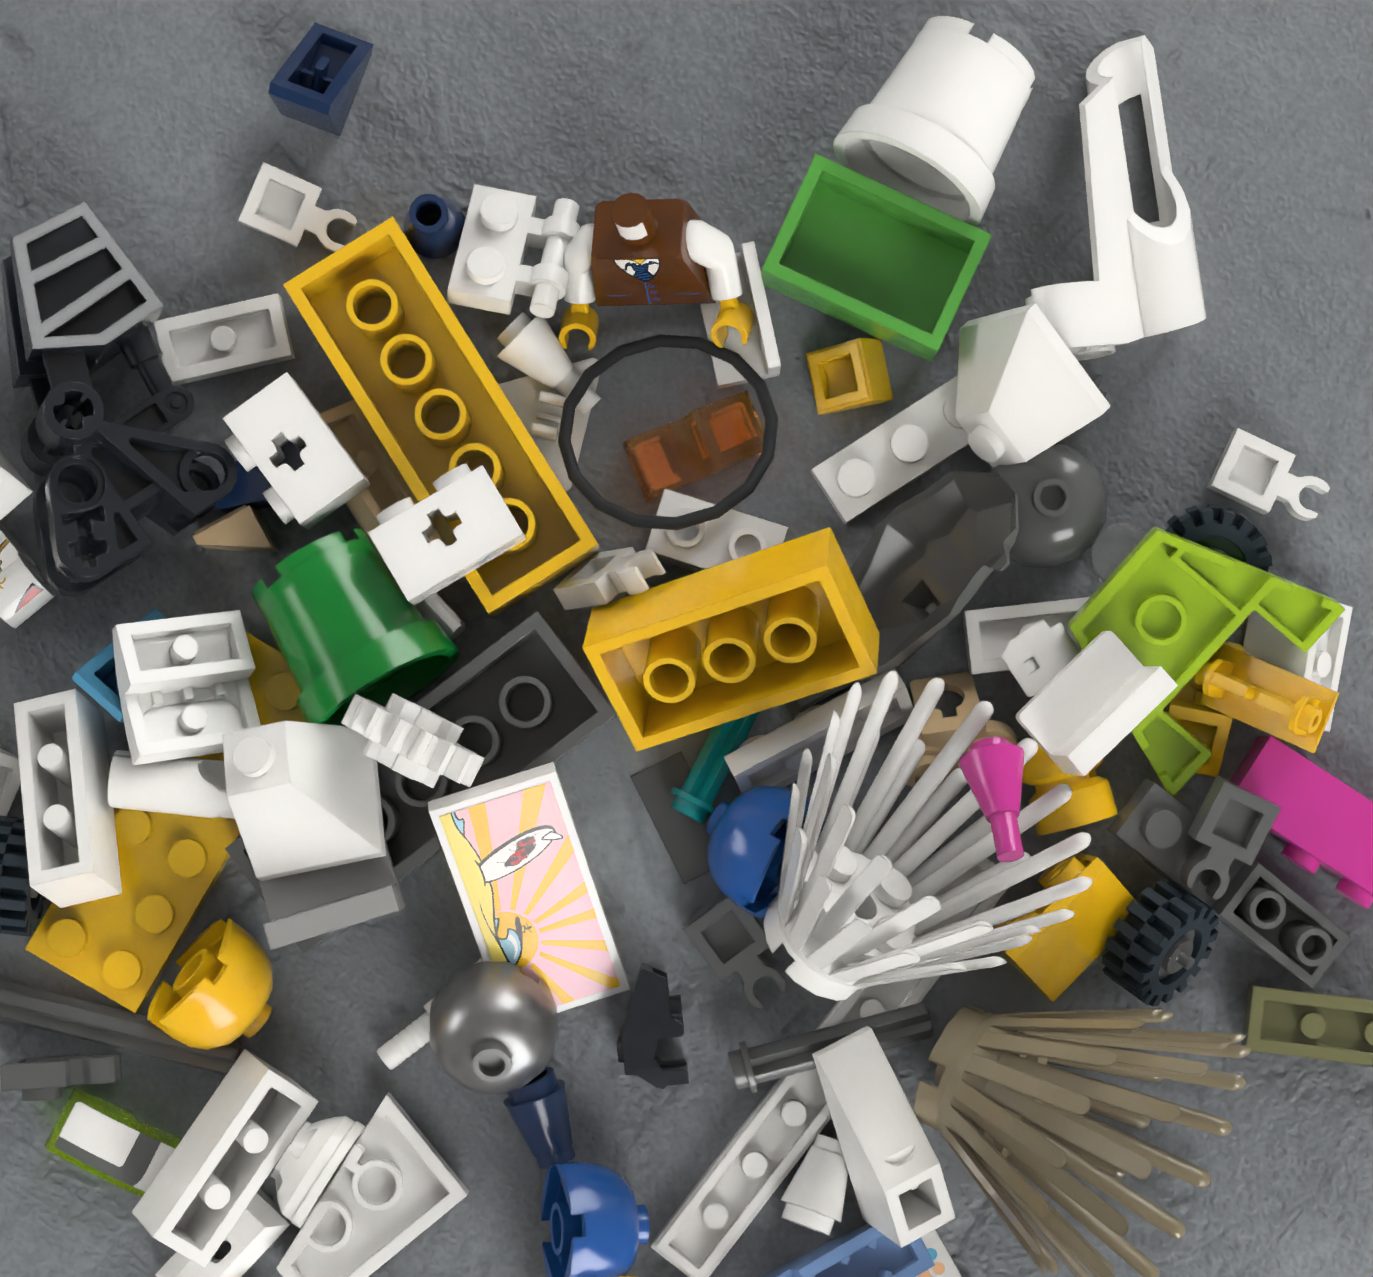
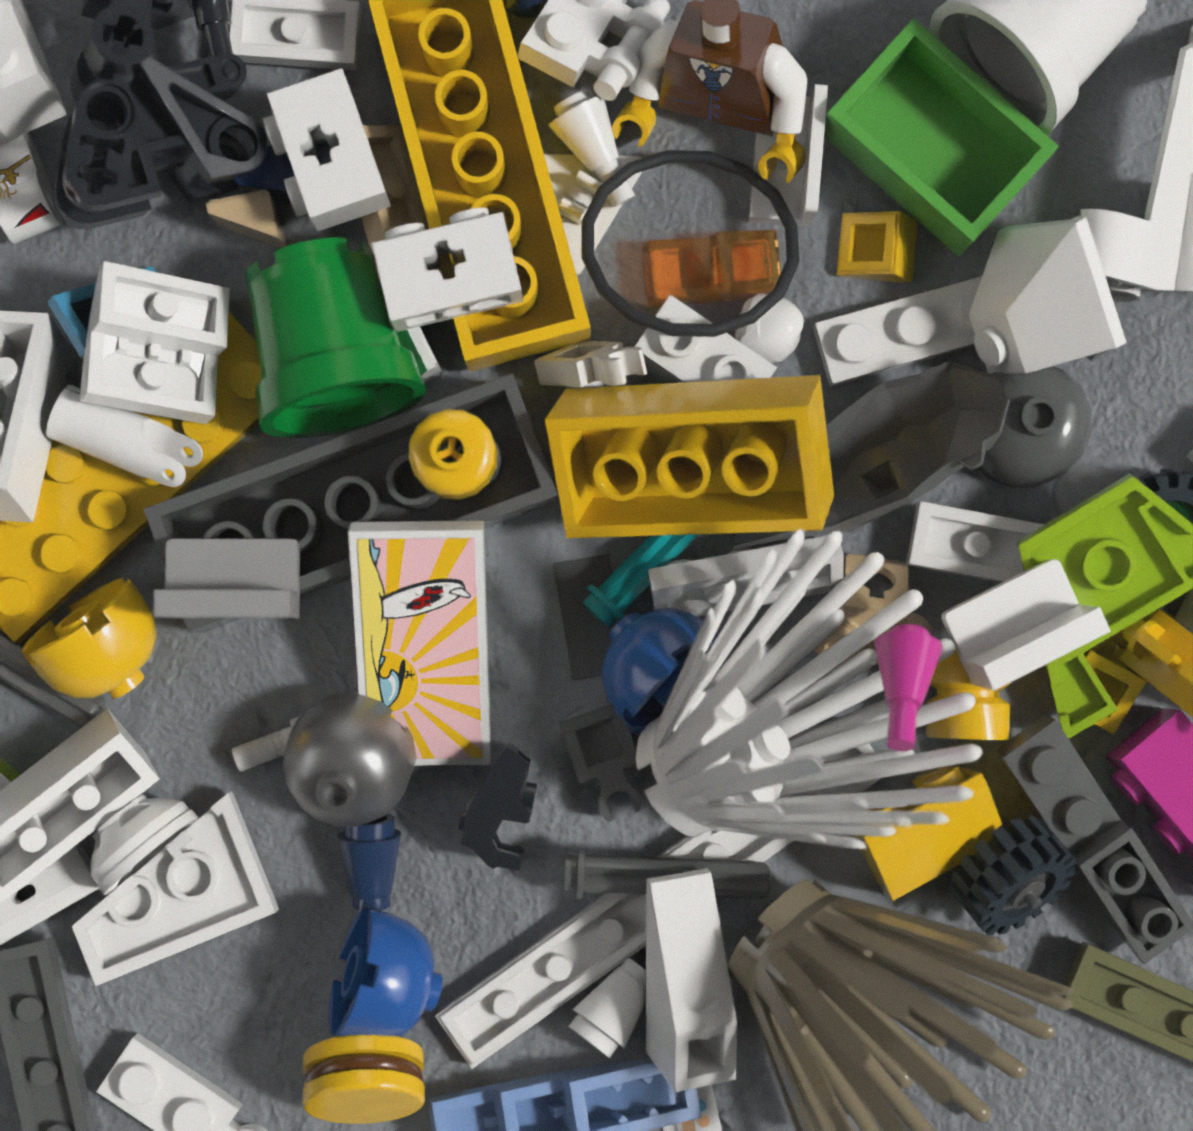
camera: 15 degrees right, 0 degrees up
(303, 797) = (233, 479): white slope -> none
(412, 740) = (353, 456): white gear -> none
(529, 715) = (472, 468): none -> yellow head
(777, 491) = (775, 332): none -> white piece
(1039, 655) = (980, 564): white piece -> none
(1230, 827) = (1116, 784): dark grey plate -> none

